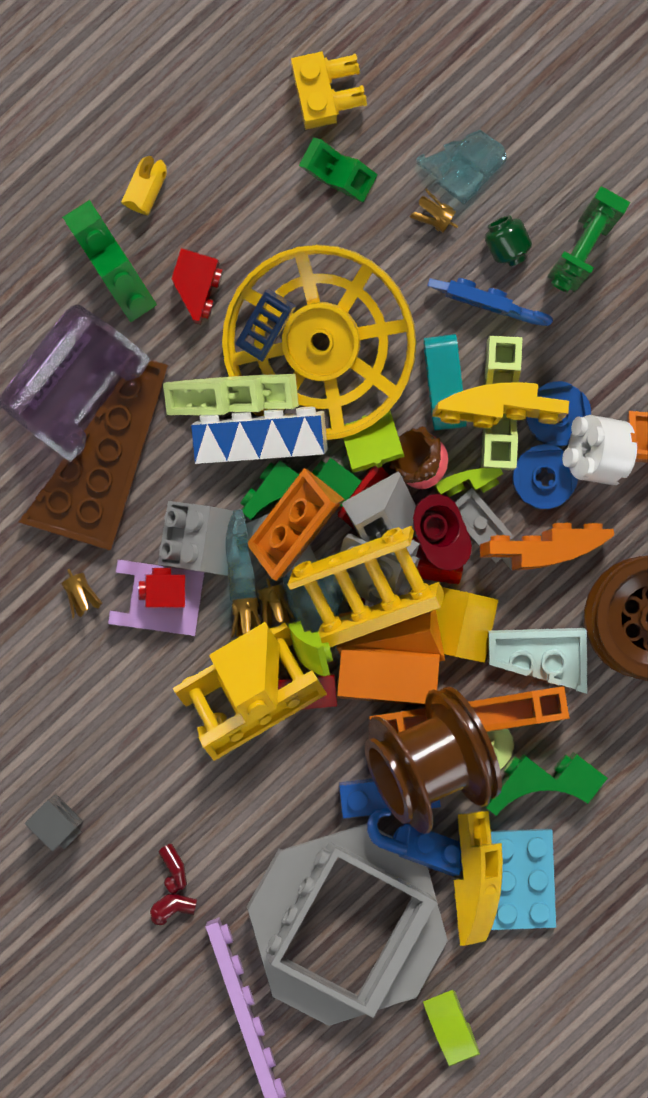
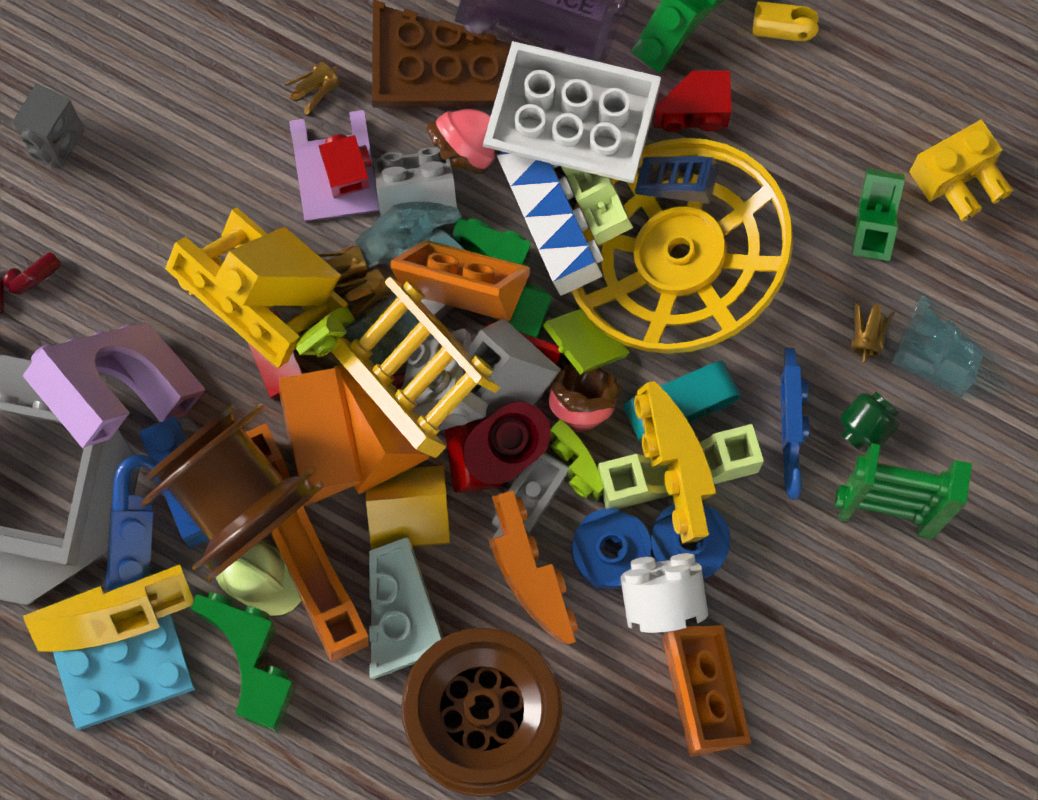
camera: 75 degrees right, 15 degrees down
(172, 486) = (461, 139): none -> coral hair
(187, 392) = (572, 112): none -> white slope
(308, 860) = (136, 355): none -> lavender arch

